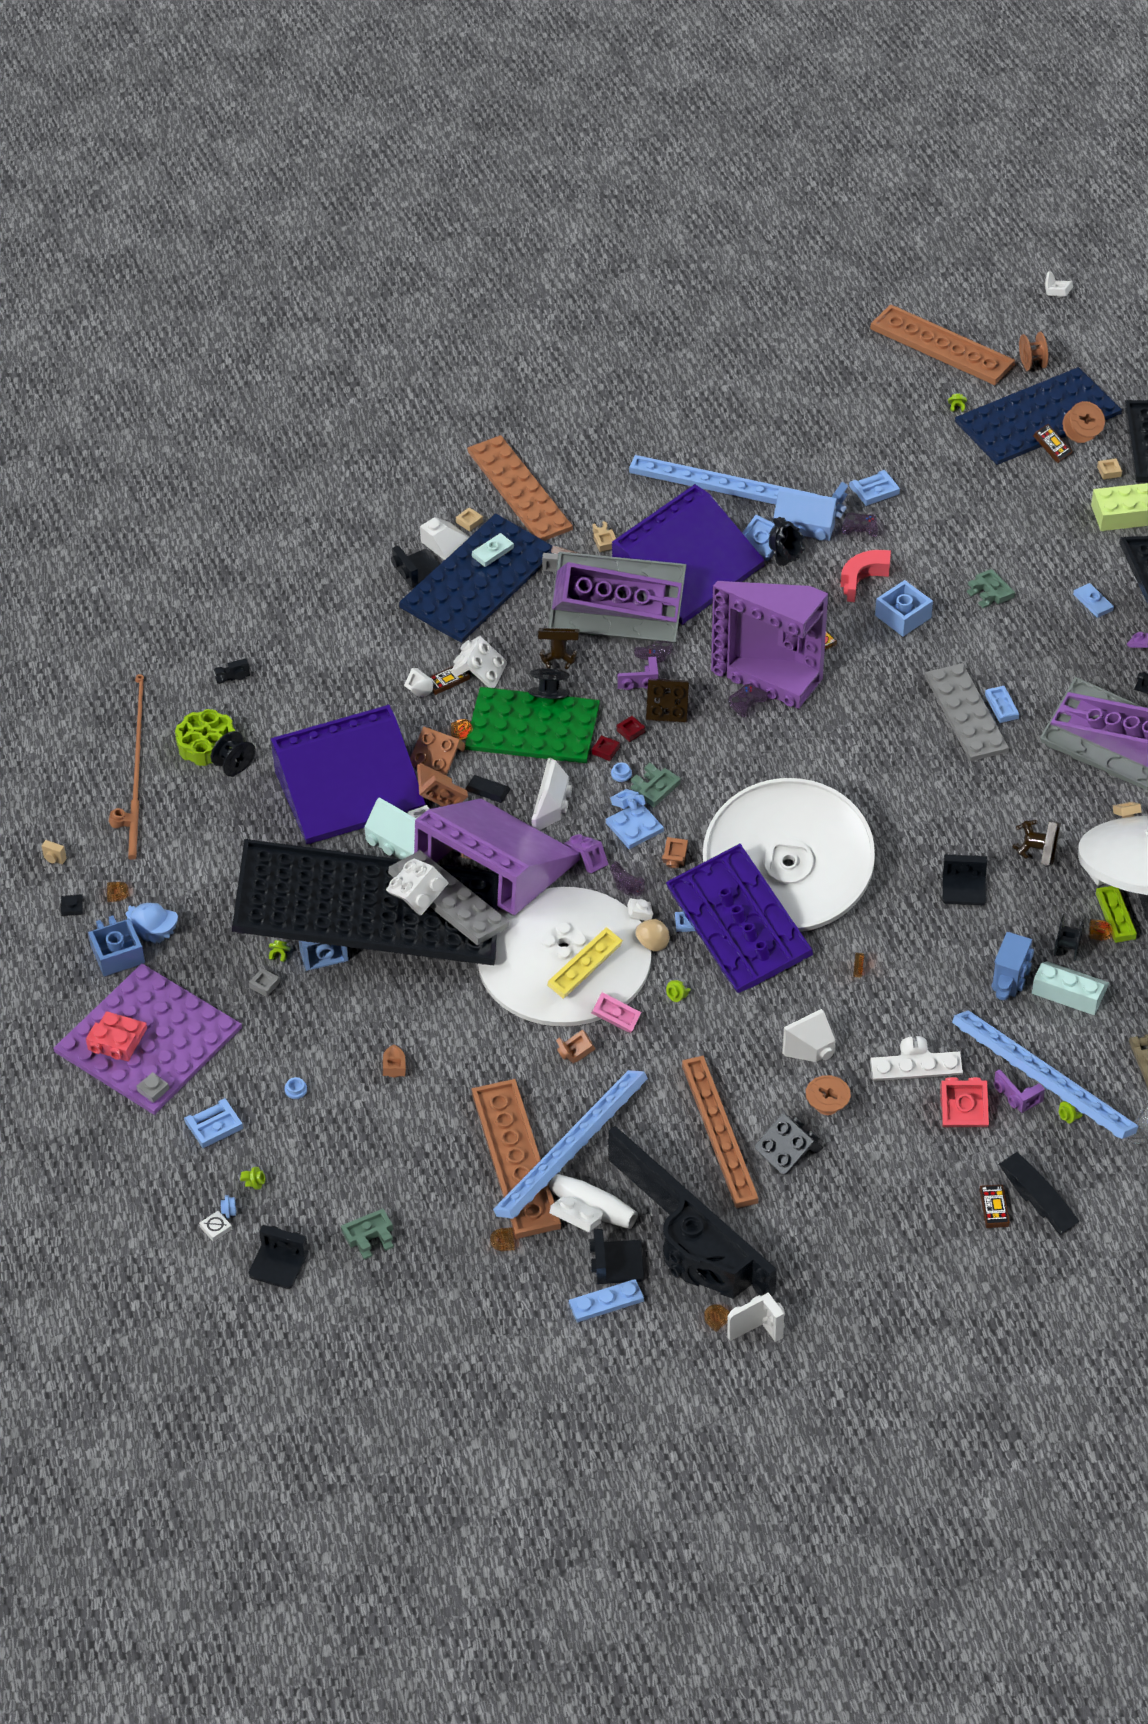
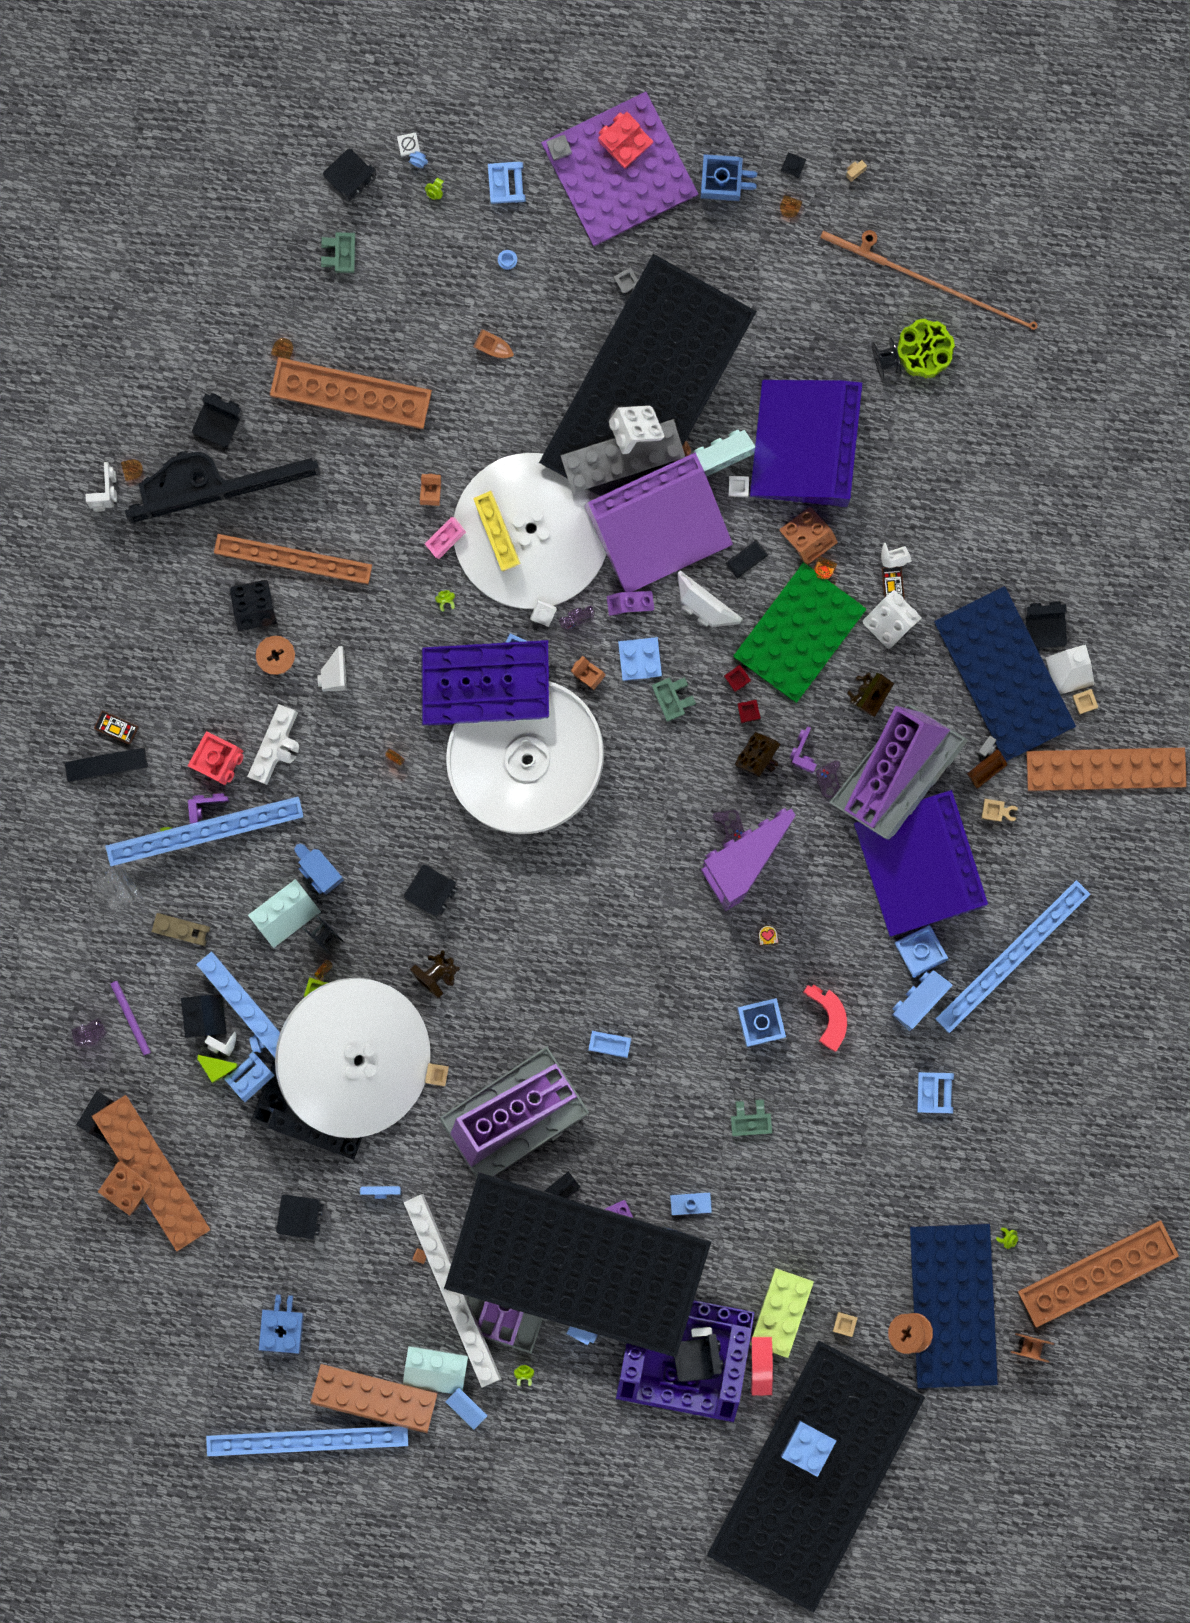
camera: 115 degrees right, 35 degrees up
(152, 921) = (736, 218): light blue hair -> none
(234, 671) = (993, 409): black plate -> none
(438, 787) = (761, 512): nougat bracket -> none
(492, 550) = (1023, 696): light aqua plate -> none
(548, 683) = (830, 663): black piece -> none
(570, 1144) = (334, 437): light blue plate -> none
(588, 1205) = (272, 420): white plate -> none
(606, 1300) = (188, 396): light blue plate -> none
(621, 772) = (704, 678): light blue plate -> none
(627, 798) = (666, 664): light blue plate -> none
(653, 934) = (510, 608): tan piece -> none
(785, 541) = (892, 961): black hair -> none
(840, 495) = (925, 1038): medium blue plate -> none
(860, 523) = (894, 1052): clear purple piece -> none
(966, 712) = (619, 1010): light grey plate -> none
(1052, 443) = (903, 1290): tile -> none
(1057, 288) = (1121, 1438): white plate -> none

